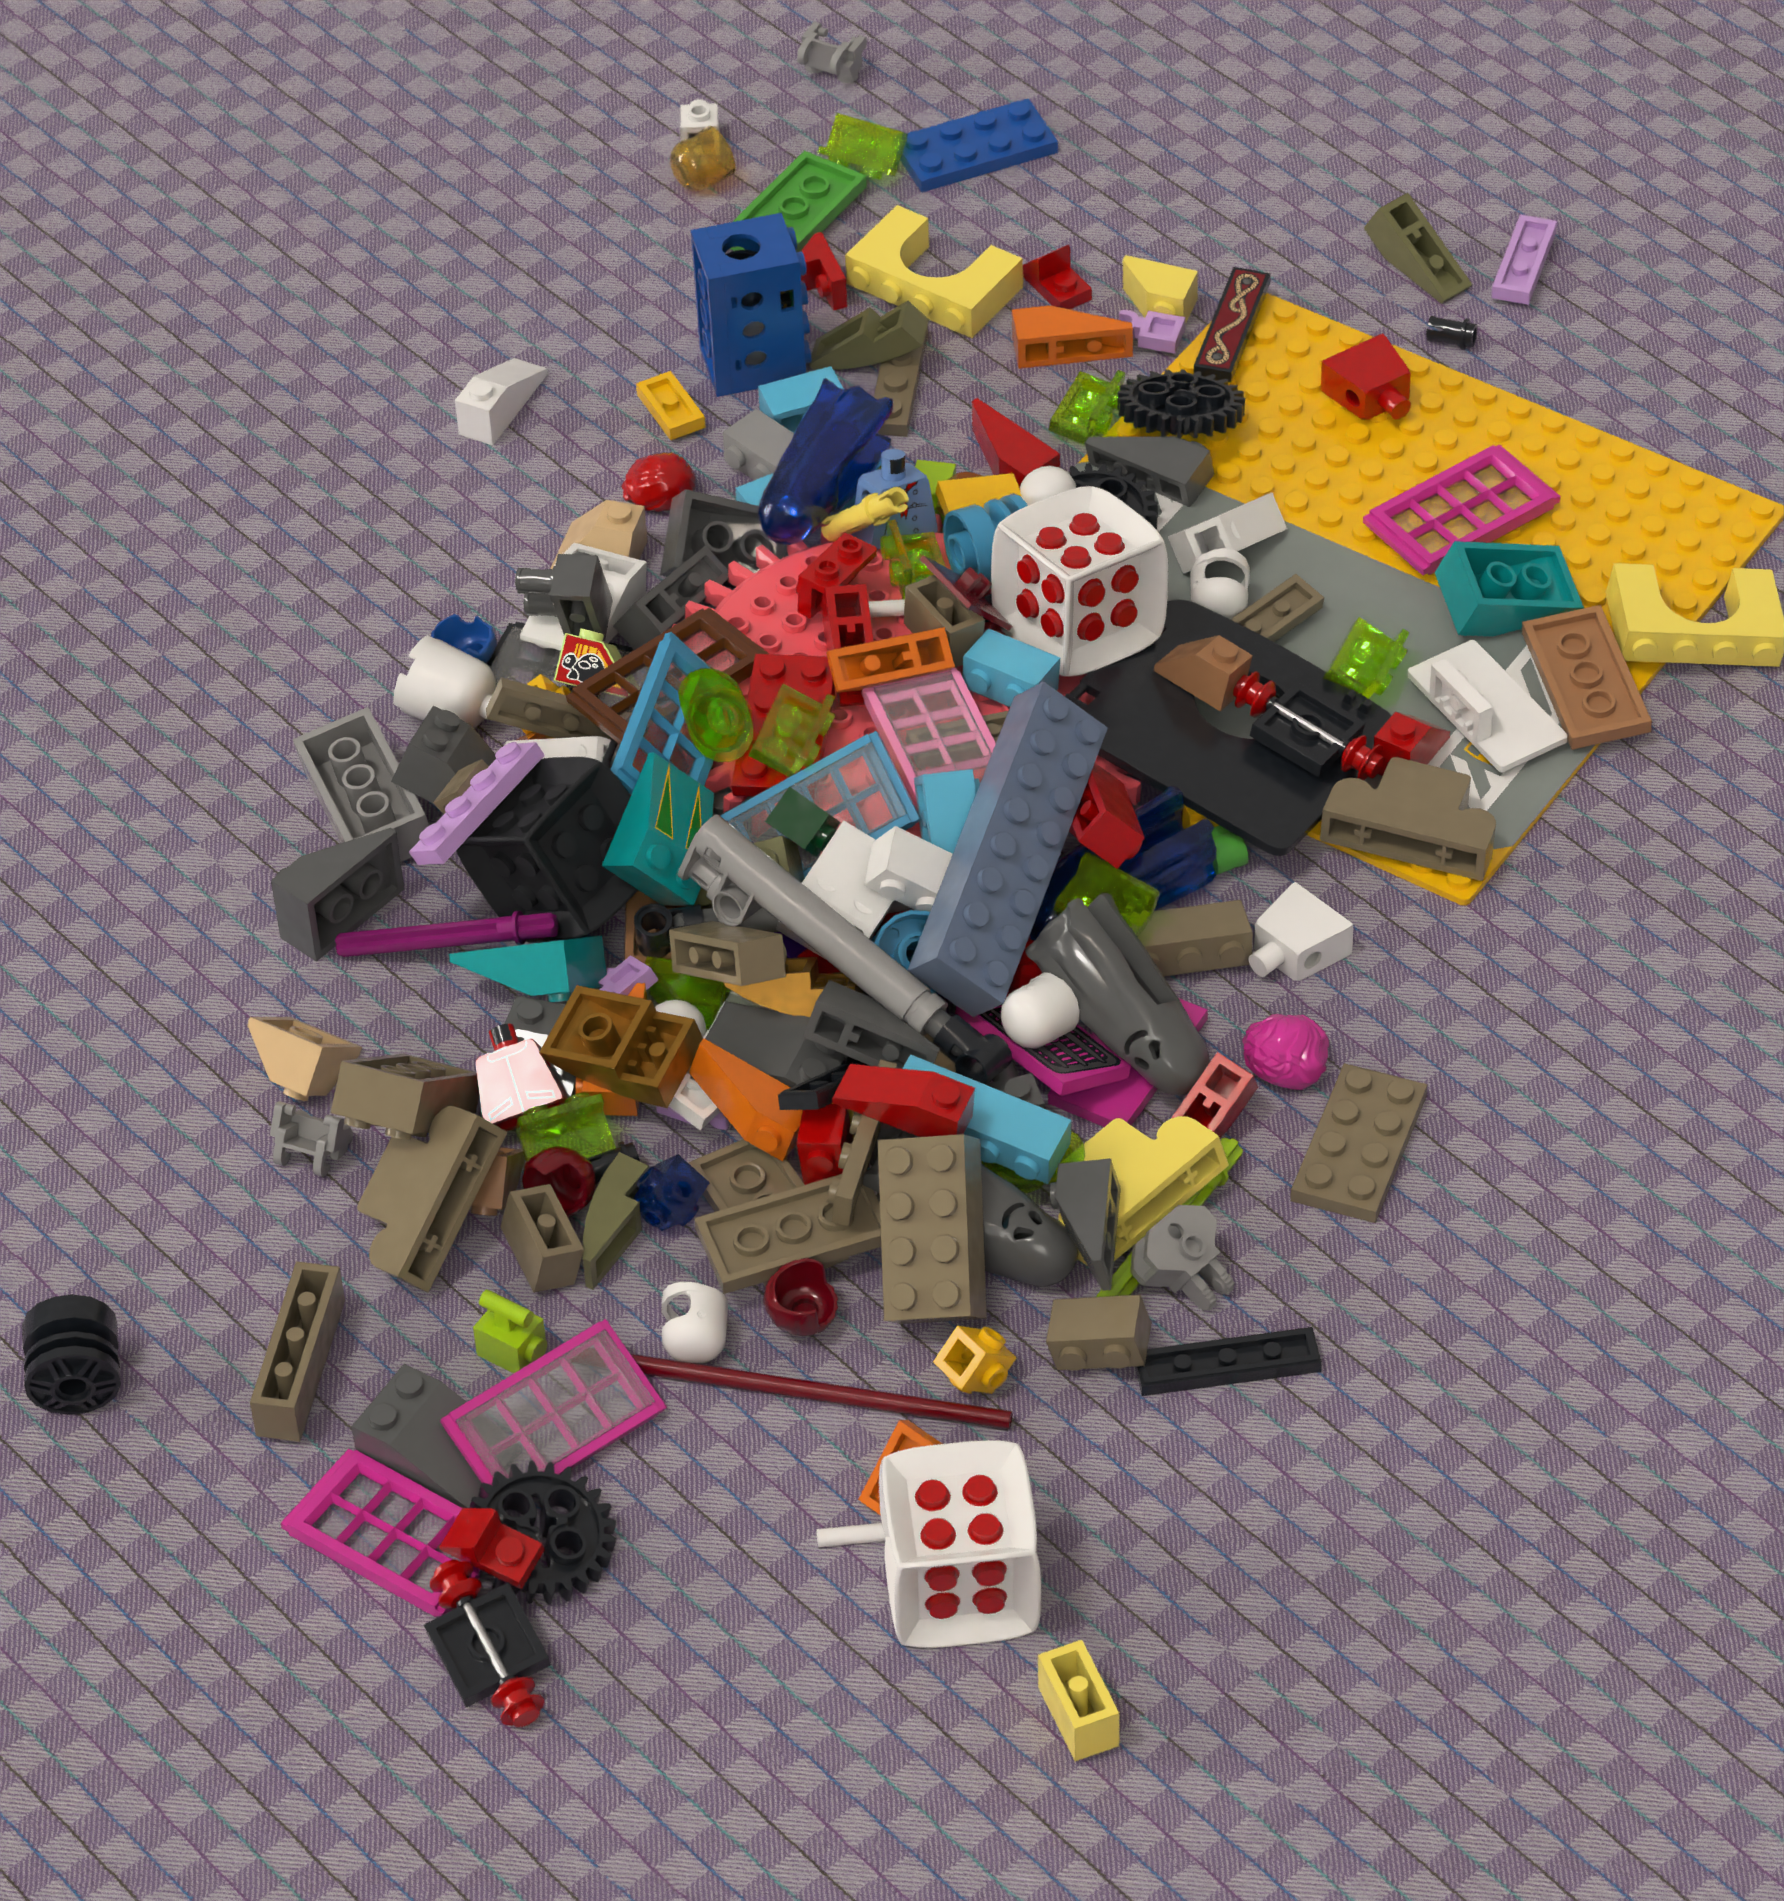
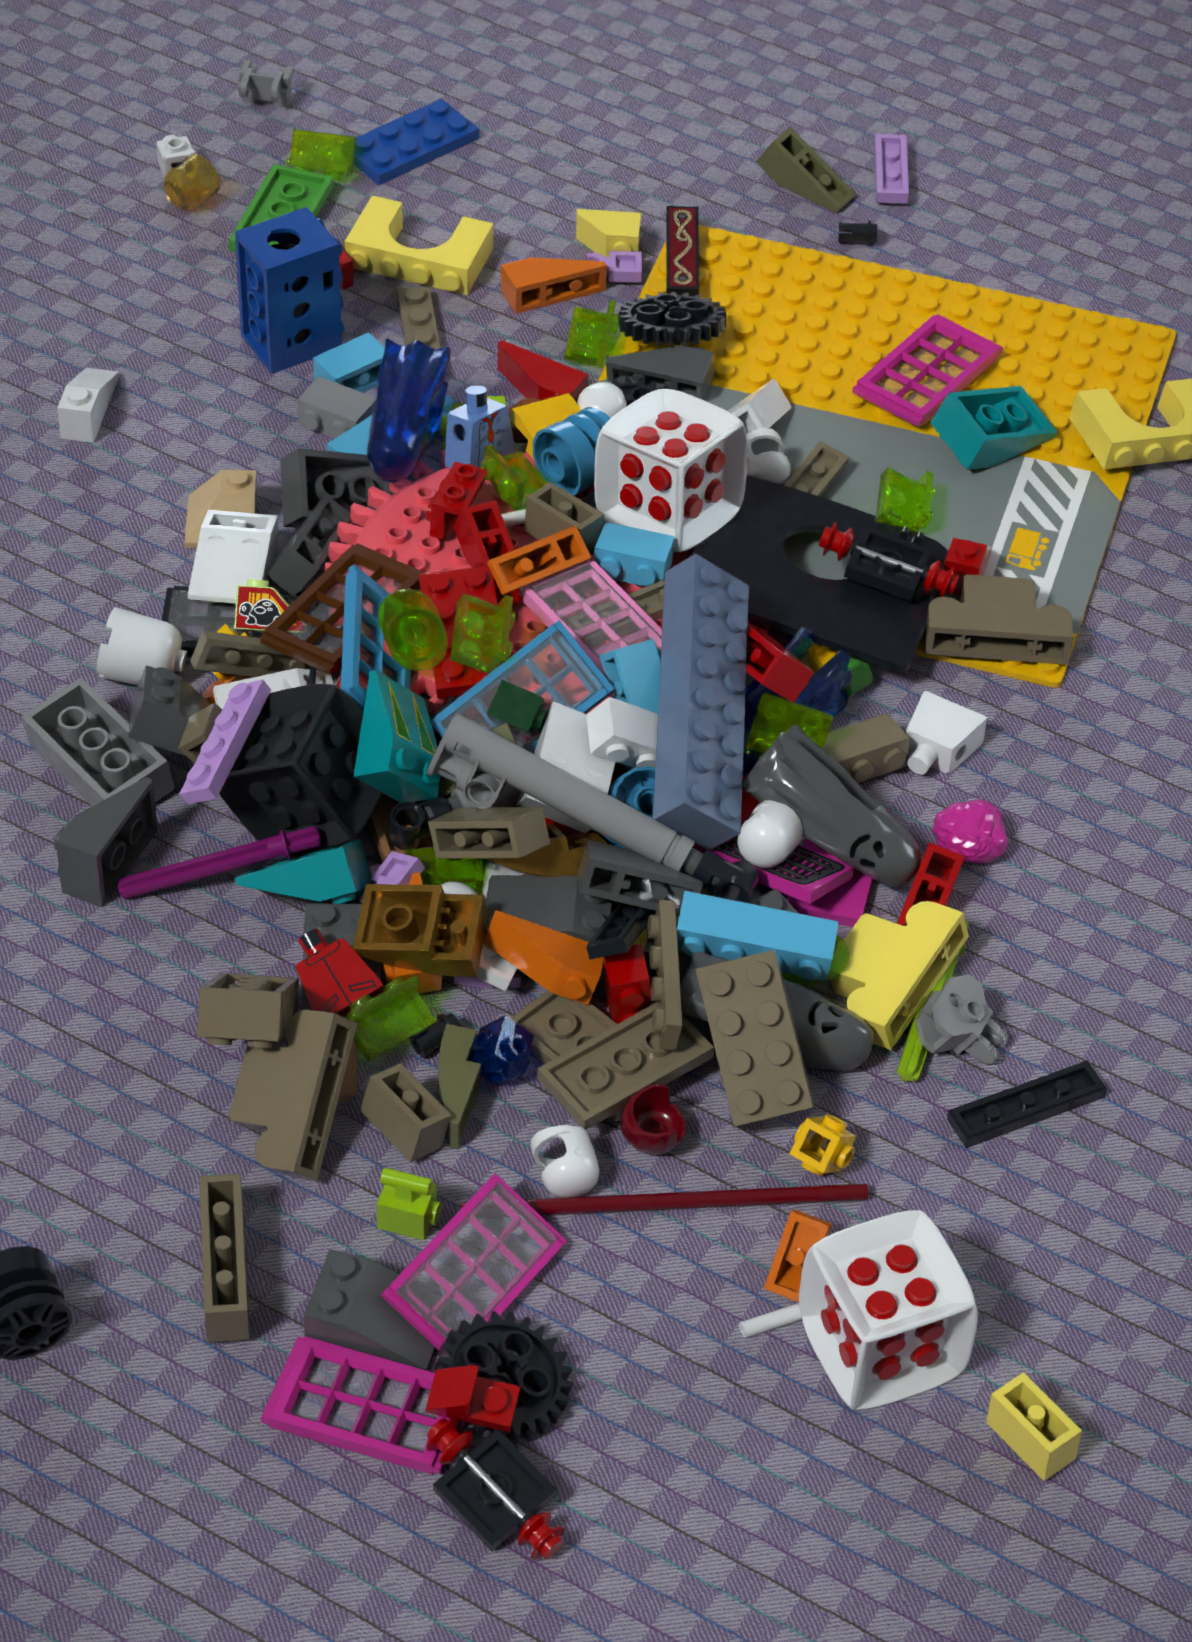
camera: 20 degrees left, 0 degrees up
(300, 1055) = (125, 992): tan slope -> none
(308, 1135) = (159, 1061): light grey piece -> none
(473, 637) = (143, 602): blue hair -> none
(568, 1174) = (401, 1047): dark red hair -> none
(570, 590) = (229, 550): dark grey brick -> none
(656, 480) = (254, 448): red hair -> none
(670, 405) = (238, 386): yellow plate -> none
(870, 338) = (391, 305): olive slope -> none
(873, 510) = (471, 439): light yellow pin -> none
(907, 1099) = (701, 929): red slope -> none
(968, 589) = (582, 488): dark red piece -> none
(1056, 280) = (519, 238): red slope -> none
(1089, 1207) = (880, 1000): dark grey slope -> none
(1098, 1332) = (917, 1100): dark tan brick -> none
(1206, 669) = (791, 526): medium nougat slope -> none
(1359, 1143) = (1058, 898): dark tan plate -> none
(1368, 379) = (813, 278): red torso -> none
(1487, 705) = (1013, 522): white bracket -> none
(1586, 677) = (1084, 486): medium nougat plate -> none

